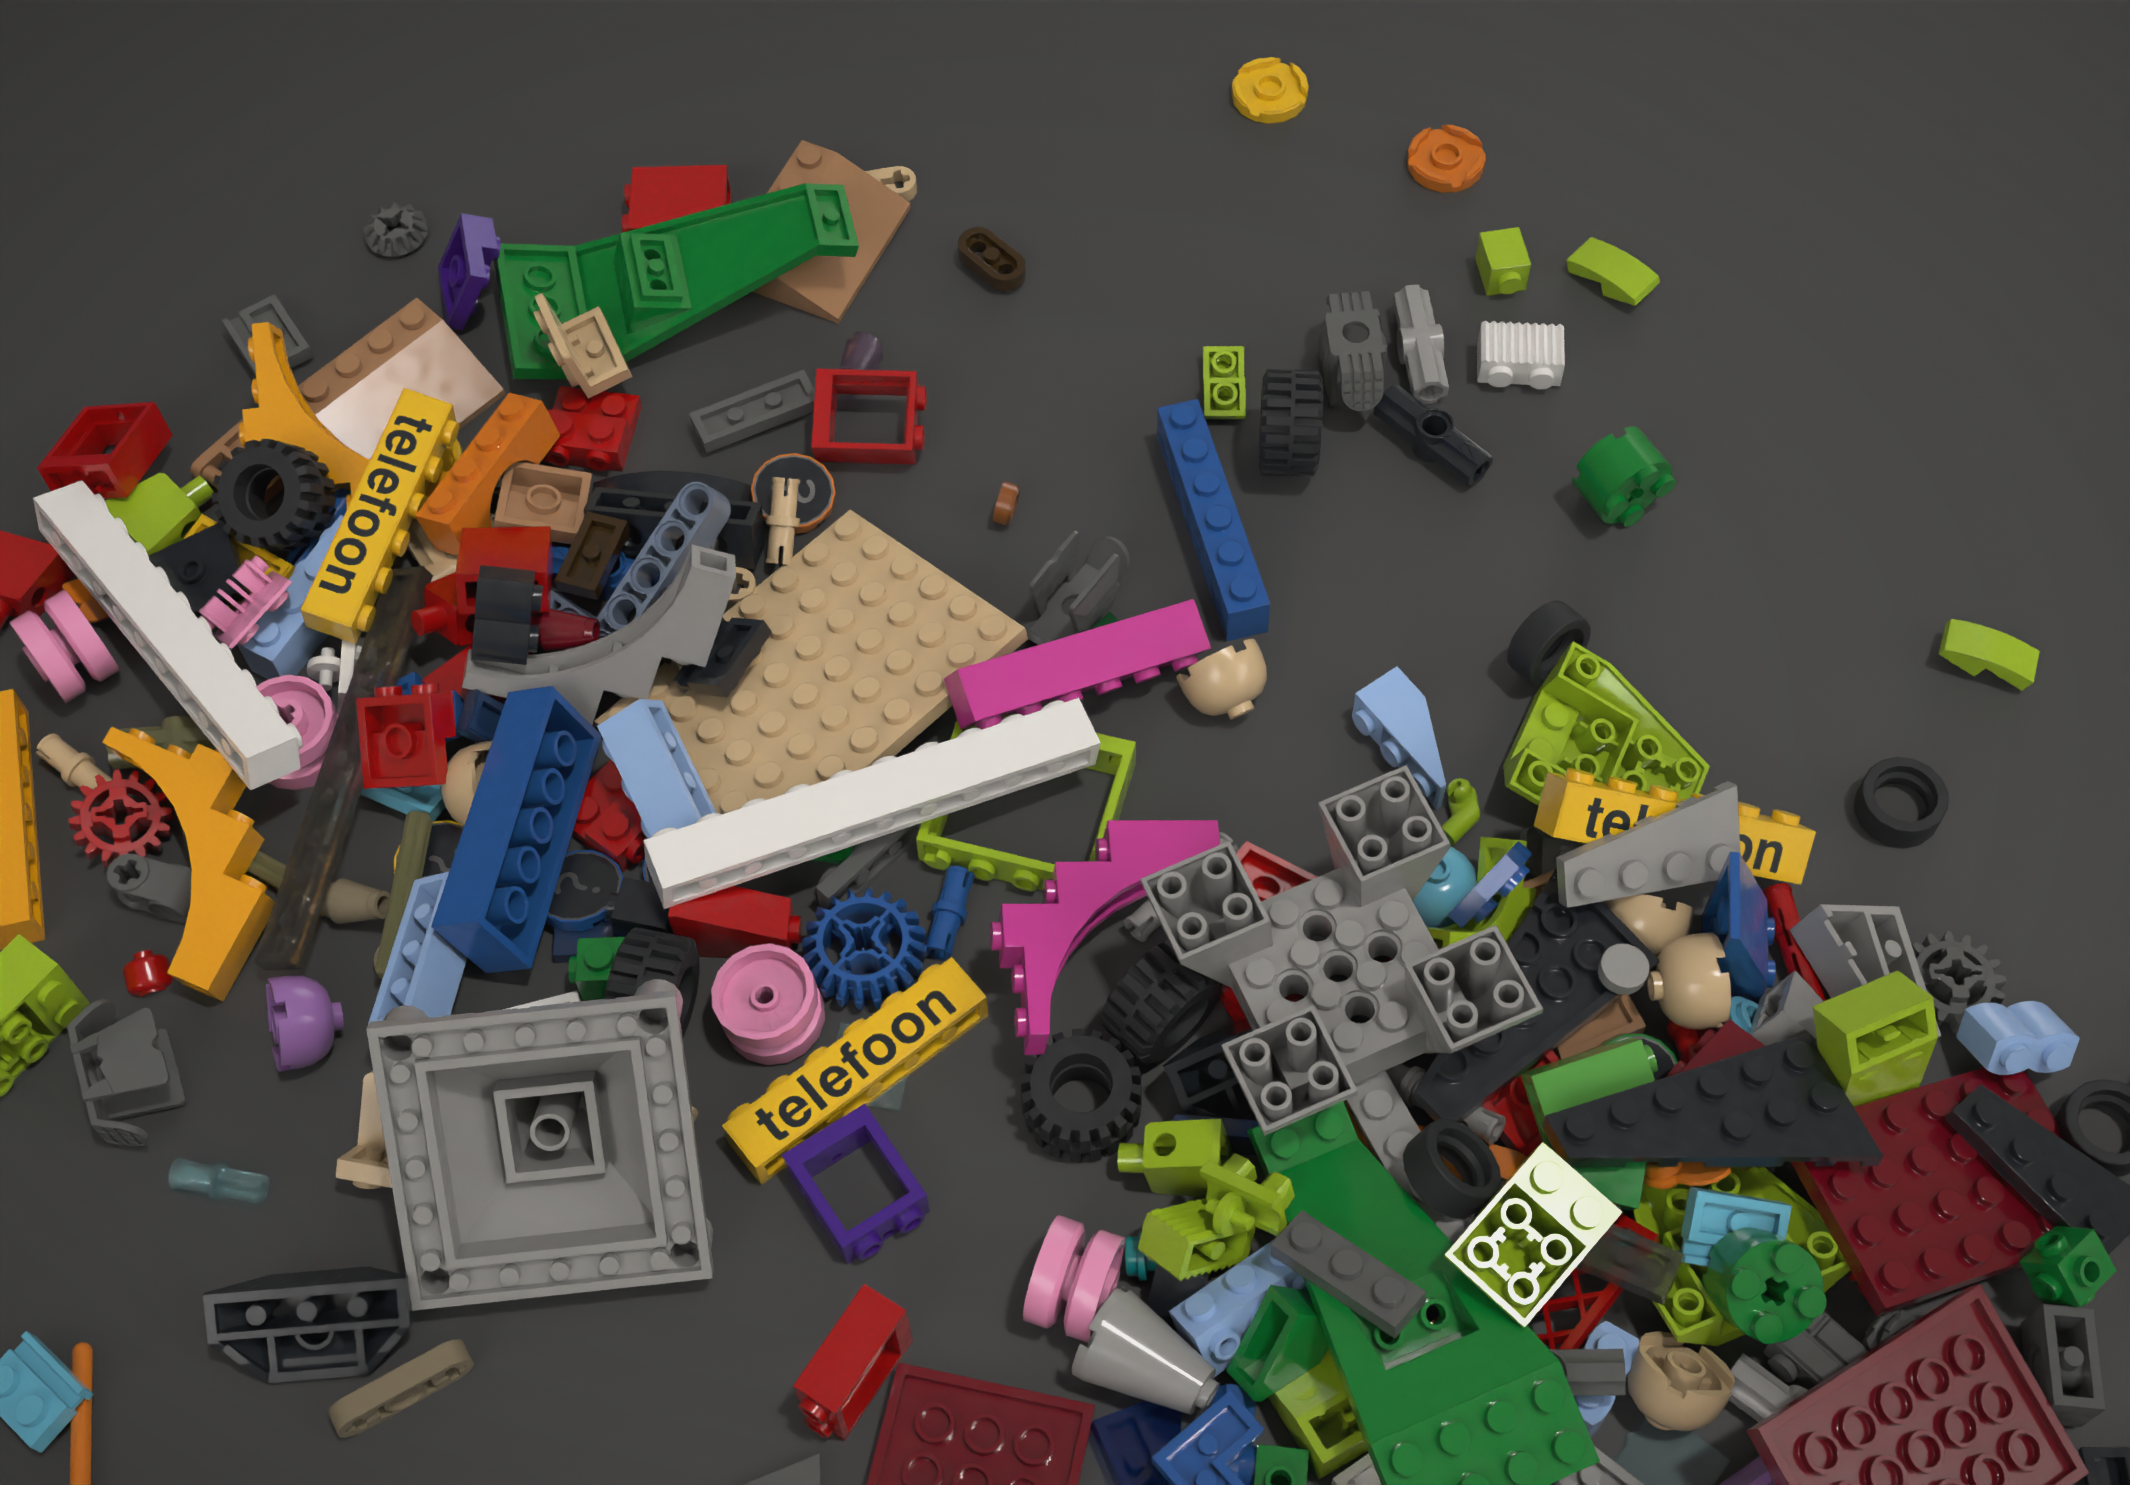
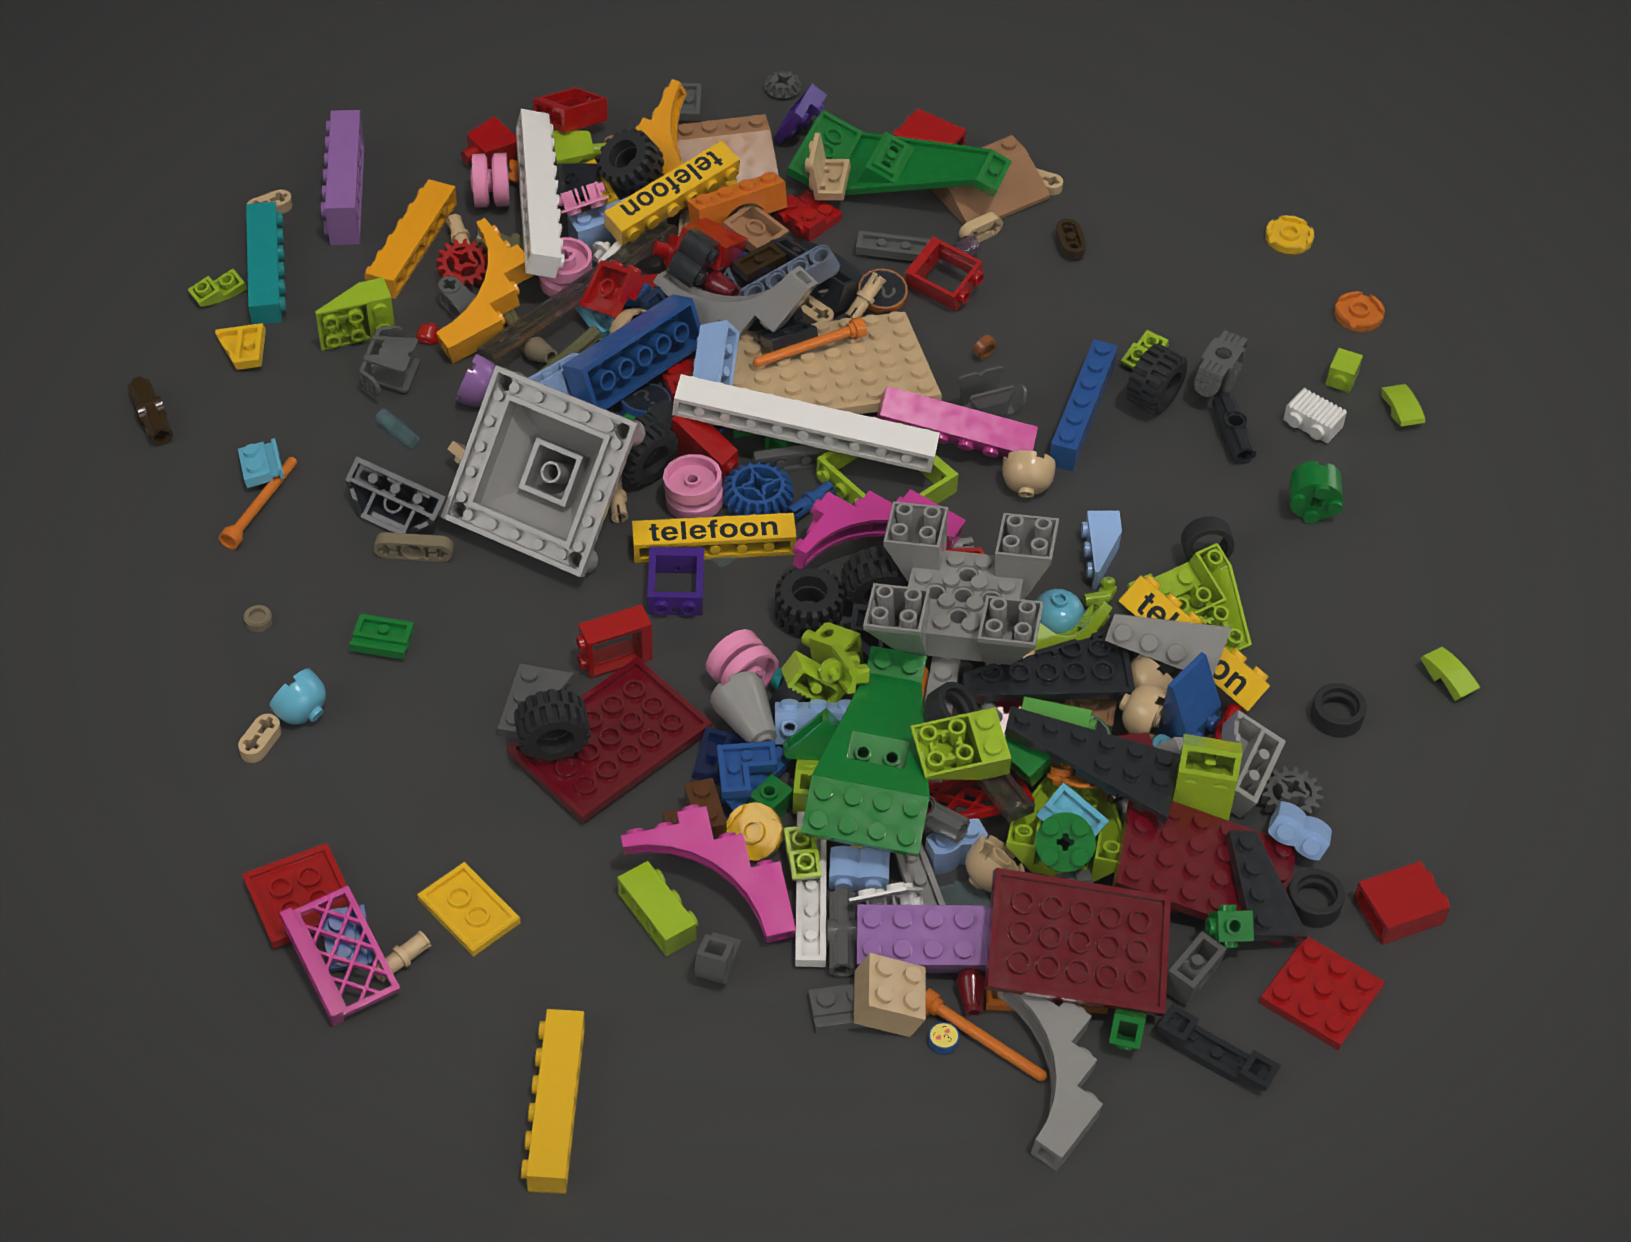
camera: 30 degrees right, 10 degrees down
(814, 586) = (854, 329): none -> orange piece
(857, 310) = (982, 227): none -> tan beam
(1348, 1274) = (863, 717): dark grey plate -> none
(1420, 344) = (1264, 385): light grey piece -> none
(1499, 879) = (1076, 608): blue plate -> none
(1623, 969) = (1111, 681): light grey tile -> none

